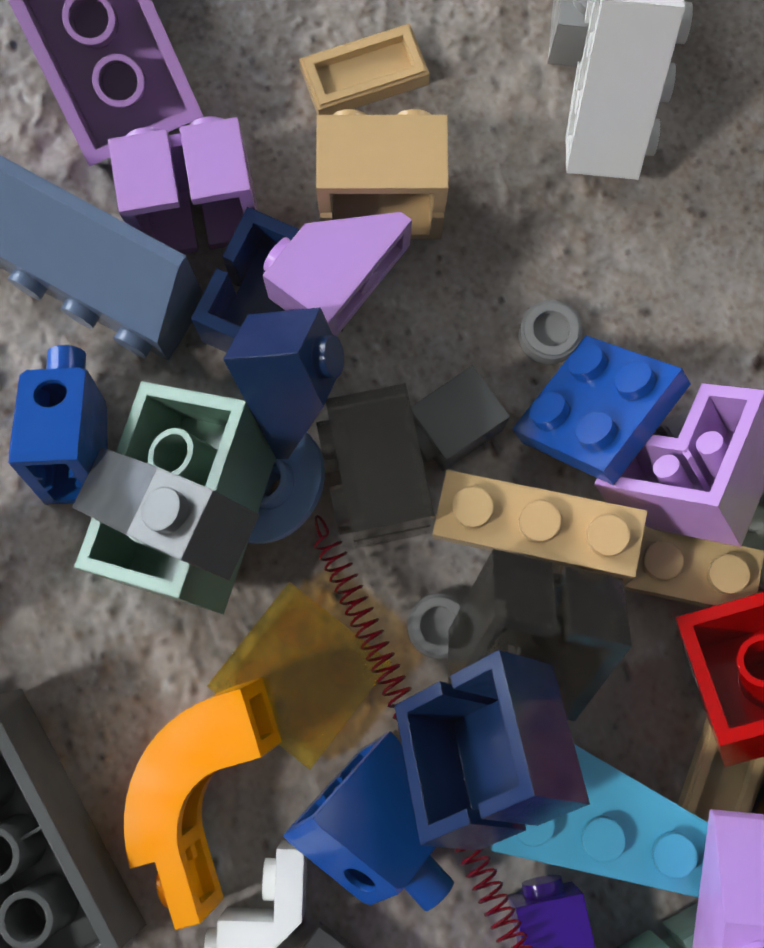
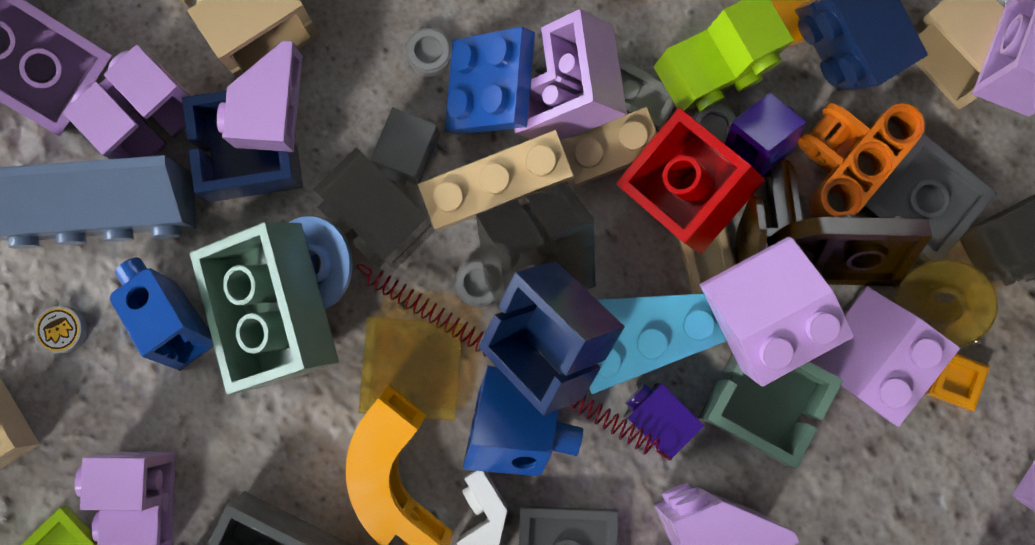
camera: 30 degrees left, 5 degrees up
(167, 512) = (260, 321): dark grey slope -> none
(285, 372) = (277, 188): dark blue slope -> none

